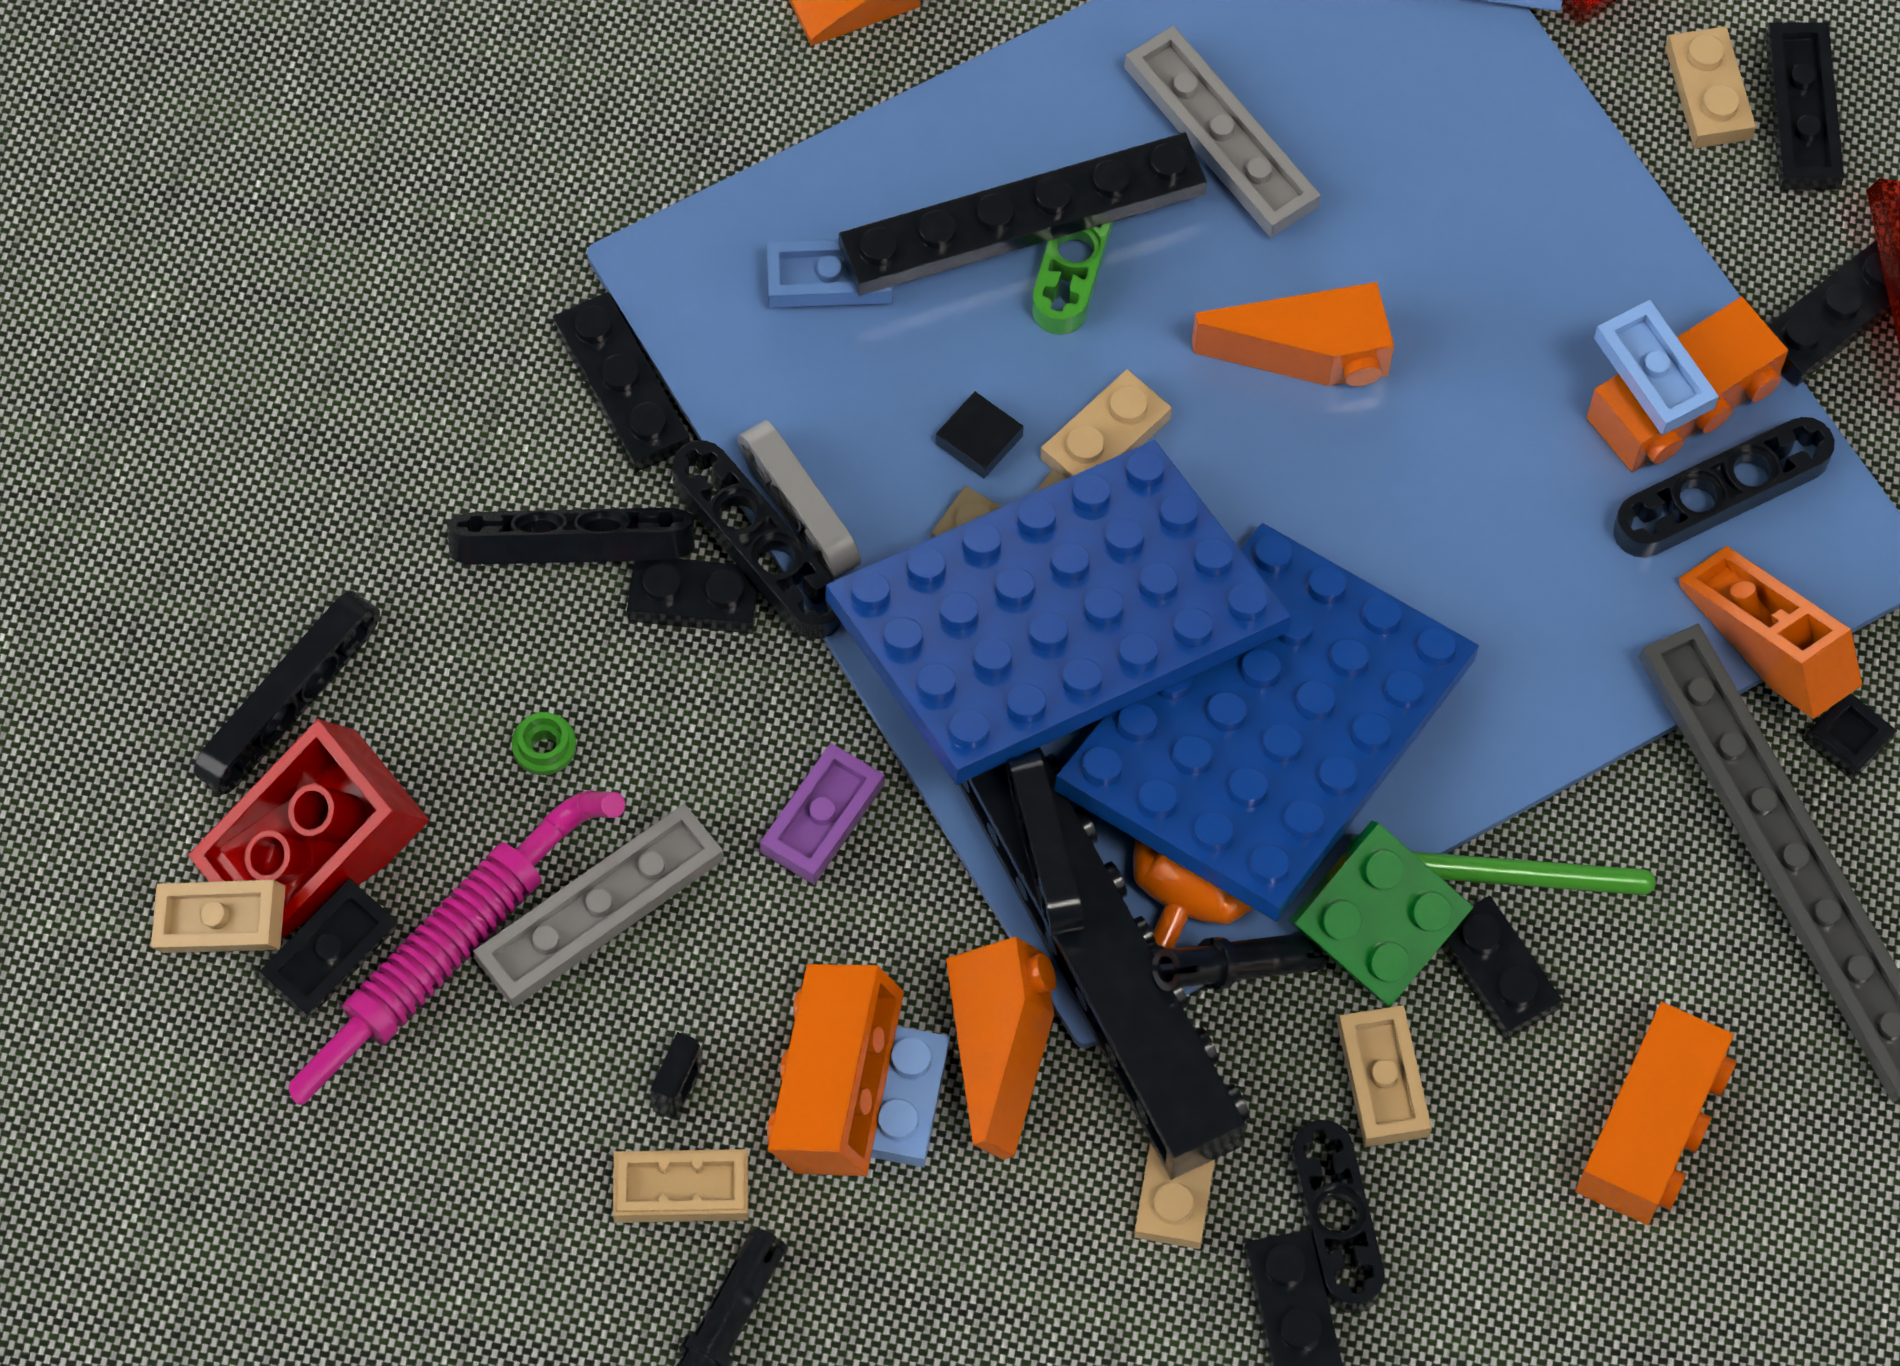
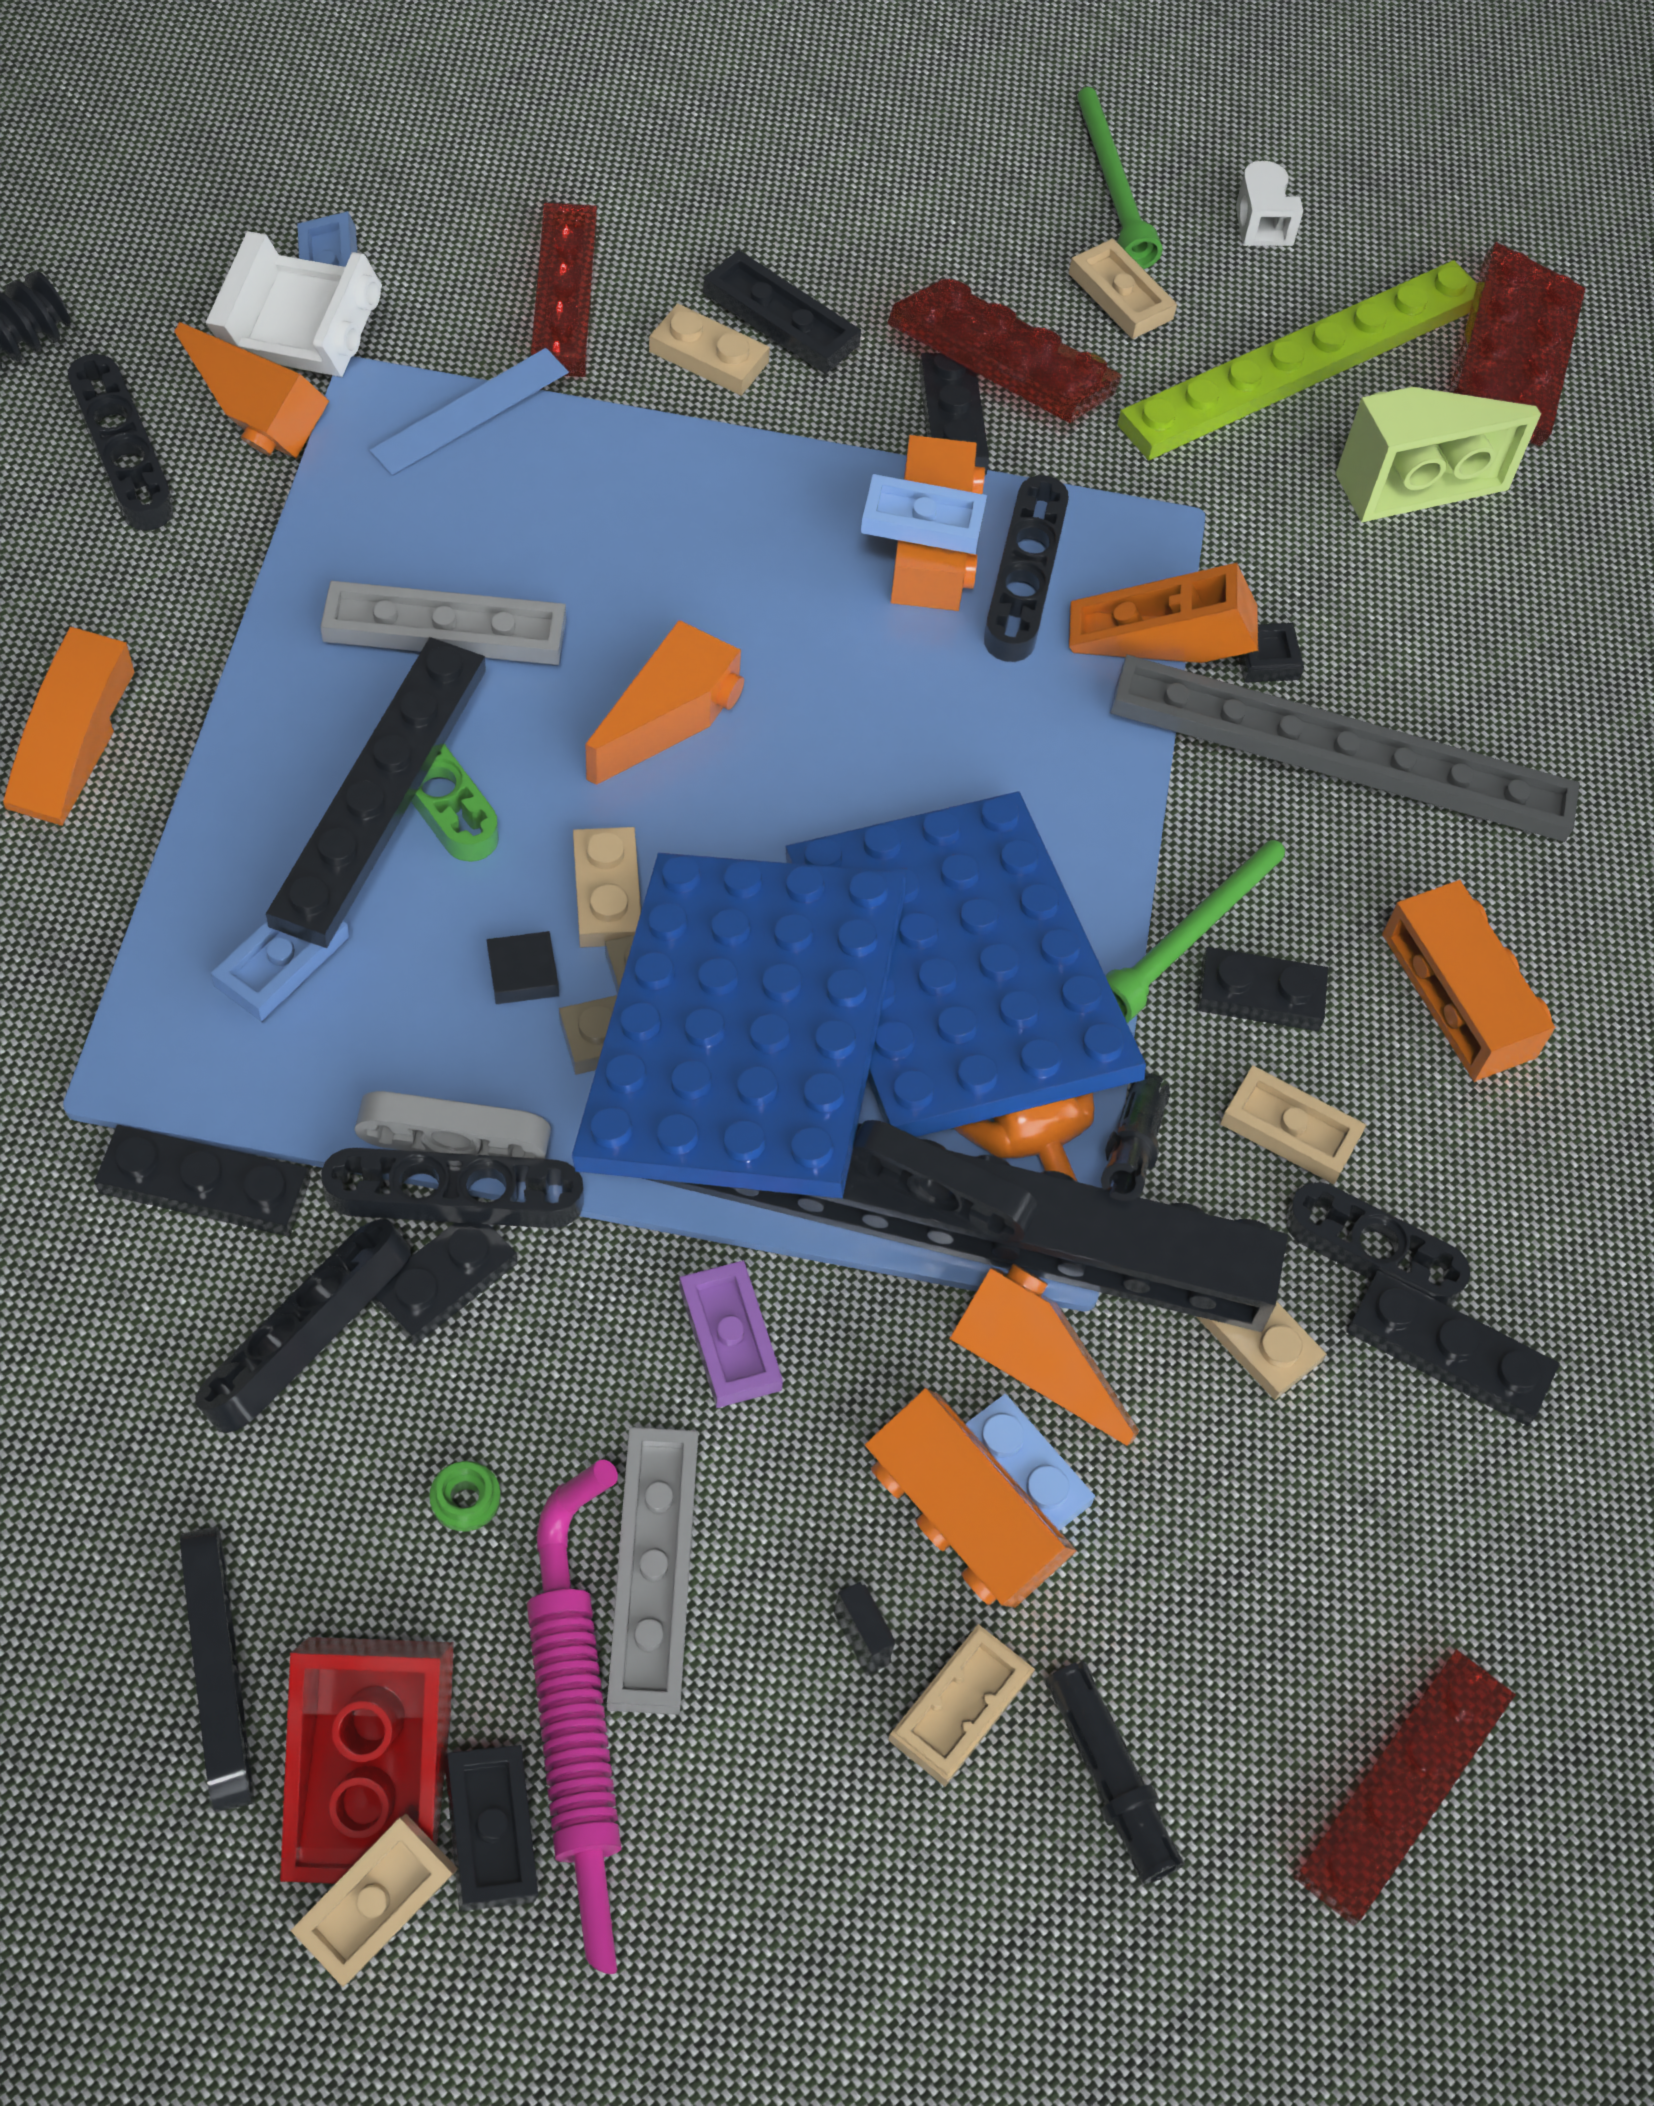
camera: 55 degrees left, 5 degrees down
(1380, 913) = (1177, 1015): green plate -> none

